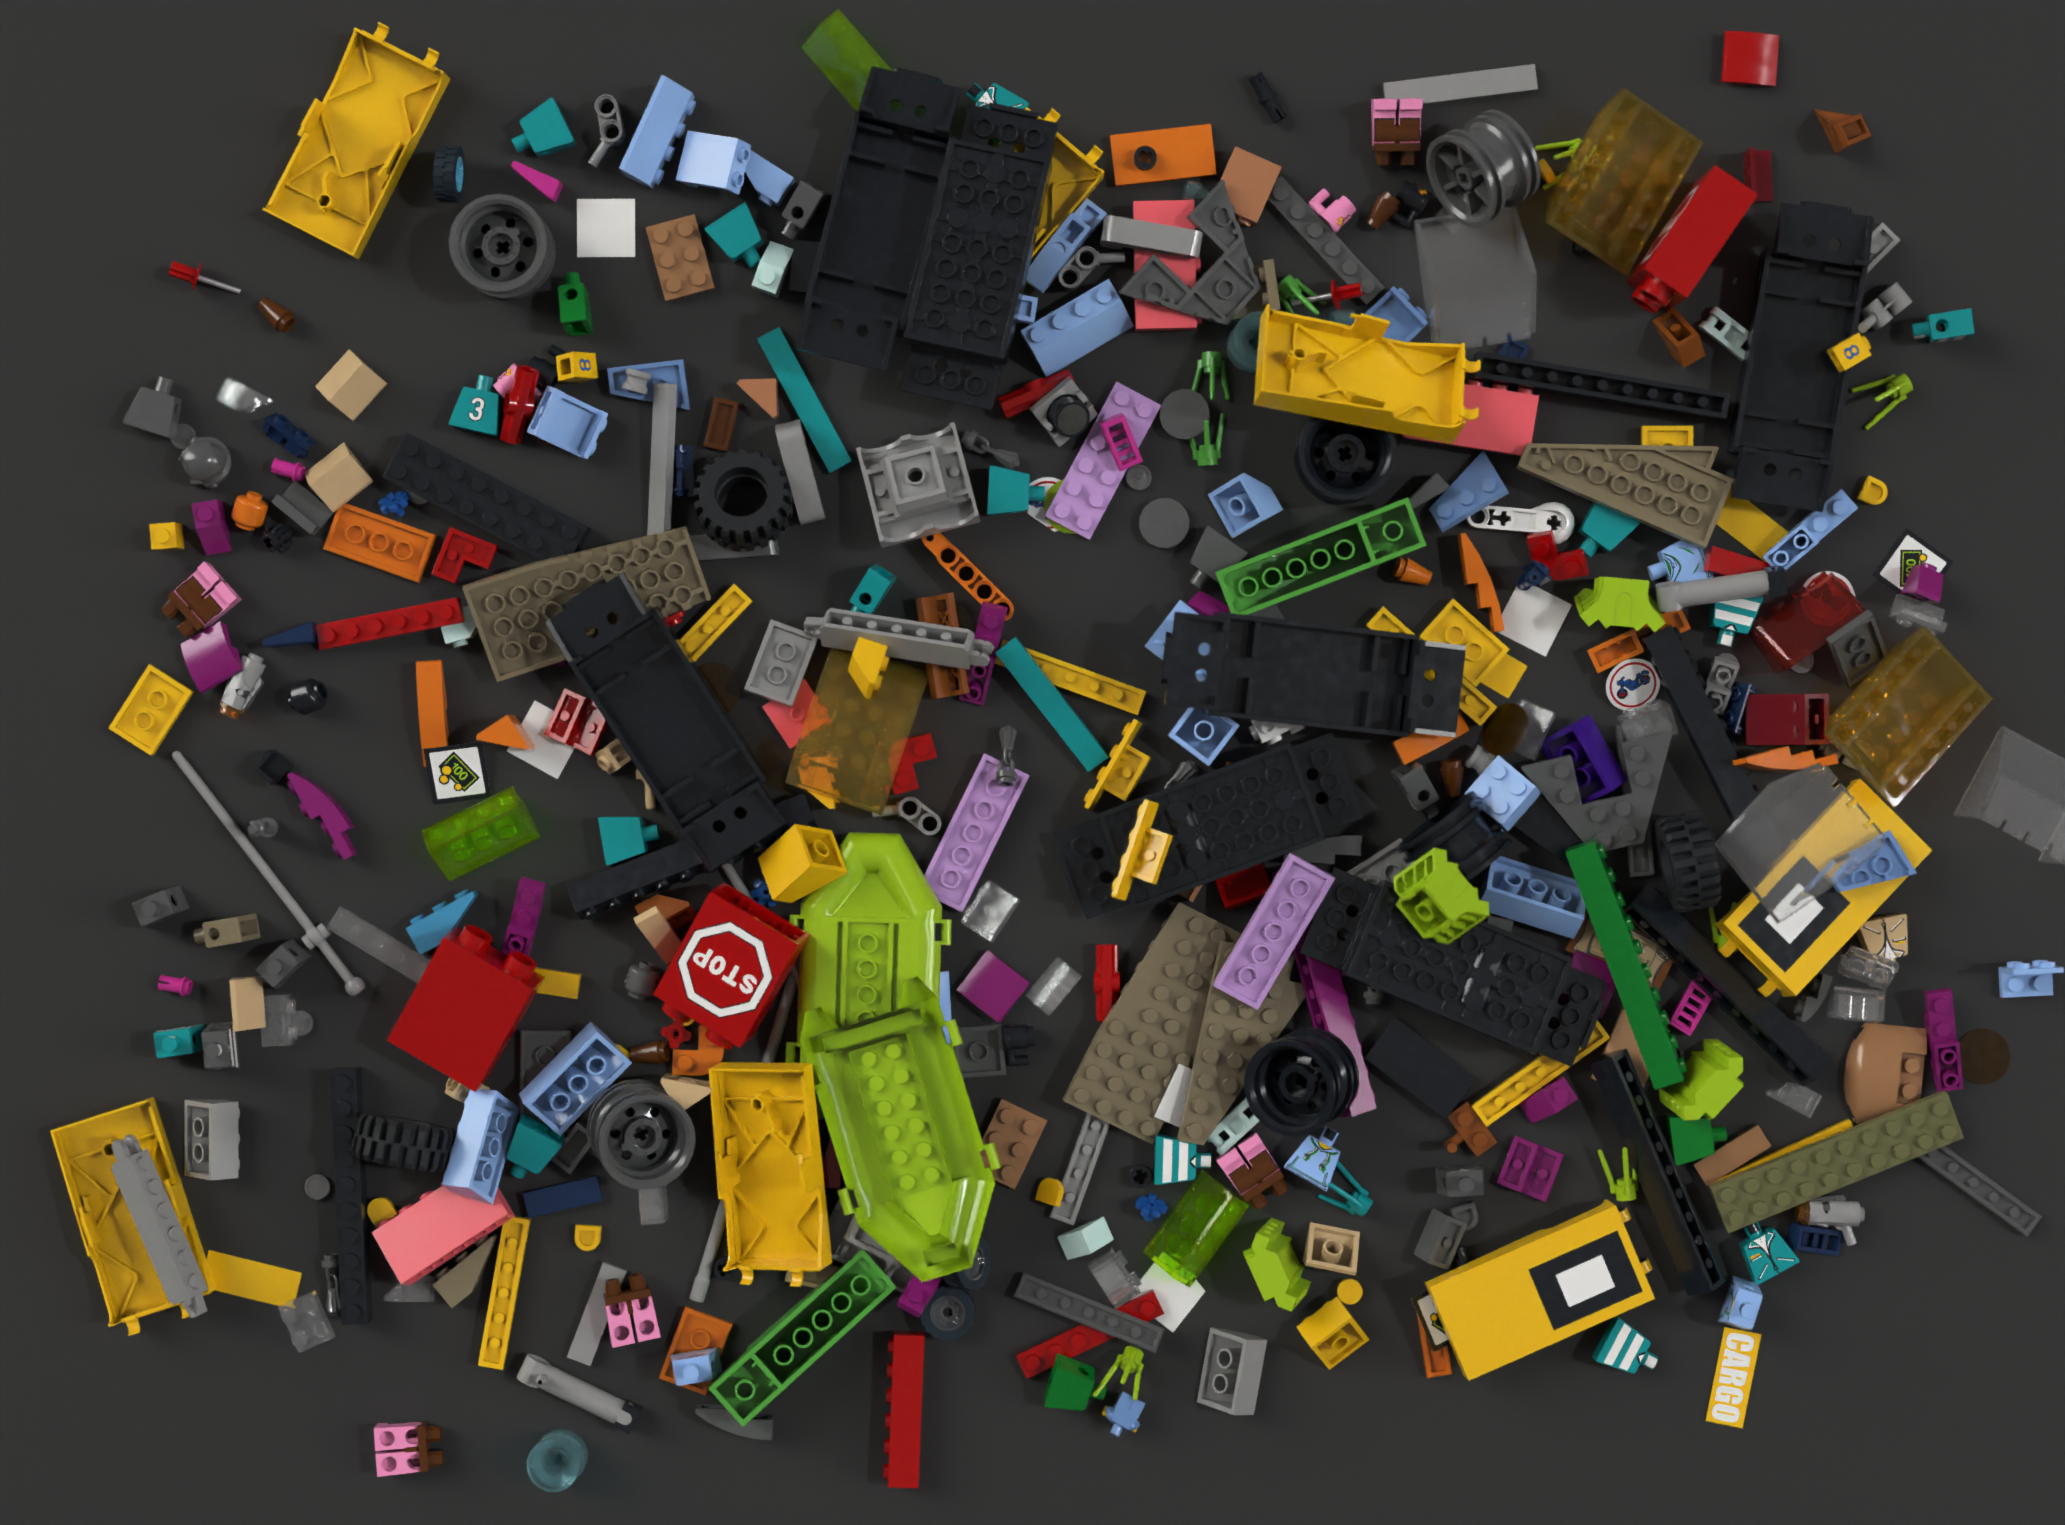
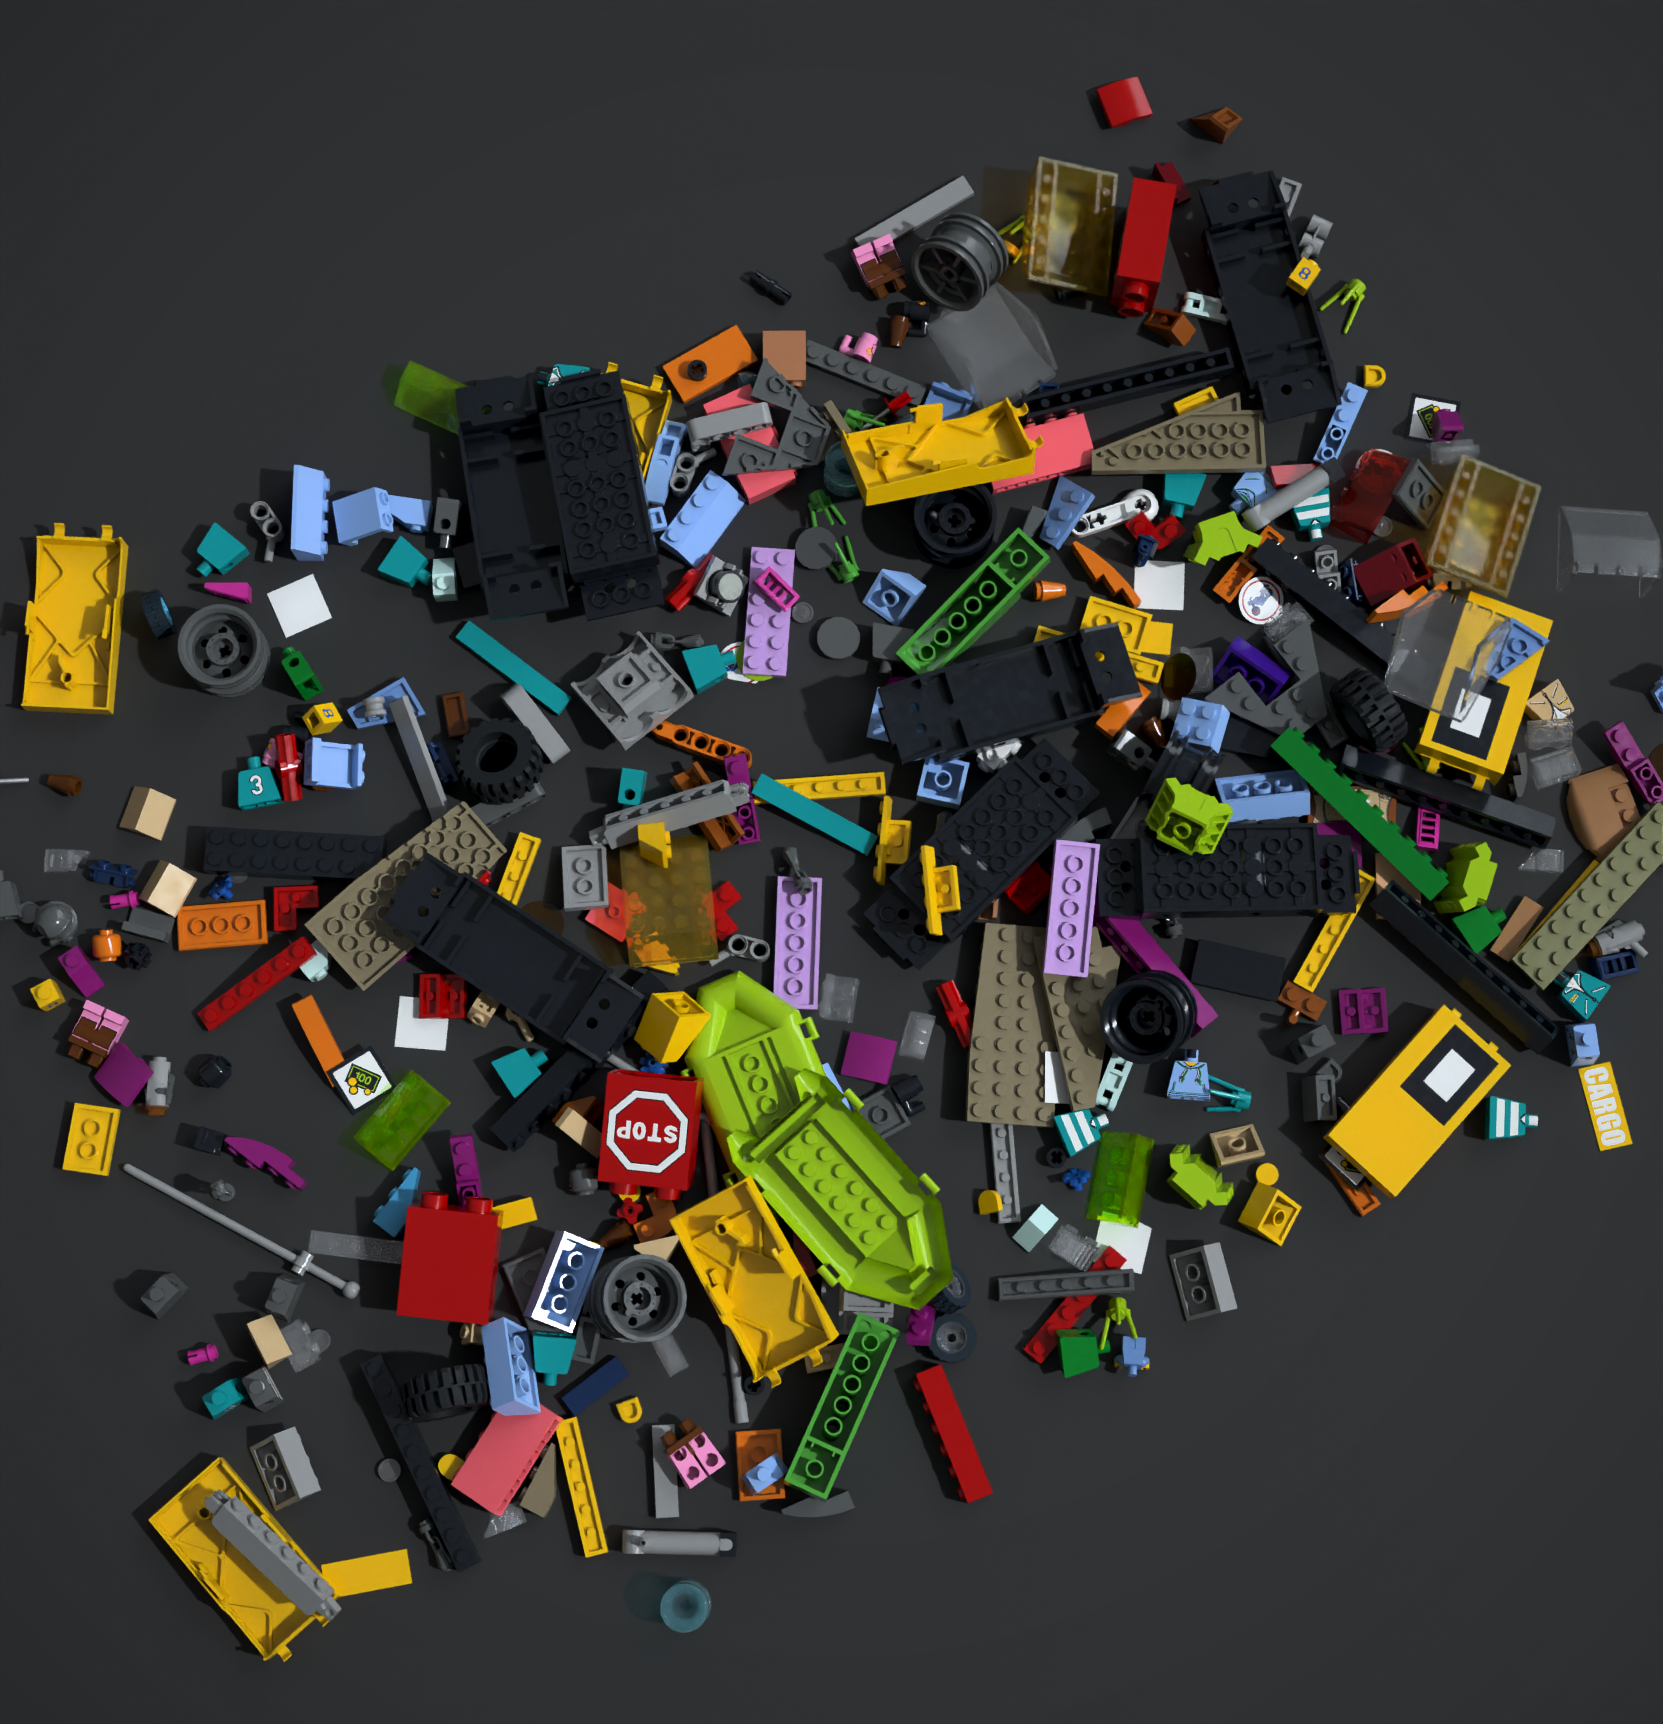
camera: 25 degrees left, 10 degrees down
(228, 931) = (228, 1289): dark tan torso -> none
(298, 635) = (185, 1028): dark blue slope -> none
(306, 1321) = (428, 1585): clear bracket -> none
(406, 1447) = (564, 1654): bright pink hips -> none
(507, 732) = (387, 1029): orange slope -> none
(680, 258) = (368, 602): medium nougat plate -> none
(763, 392) = (477, 676): nougat slope -> none
(1015, 1137) = (944, 1168): medium nougat plate -> none
(1256, 1178) = (1151, 1111): reddish brown hips -> none
(1548, 1100) = (1350, 949): magenta slope -> none
(1625, 1187) = (1445, 992): lime plant -> none
(1749, 525) = (1291, 442): yellow sticker -> none
(1957, 326) = (1374, 224): teal torso -> none

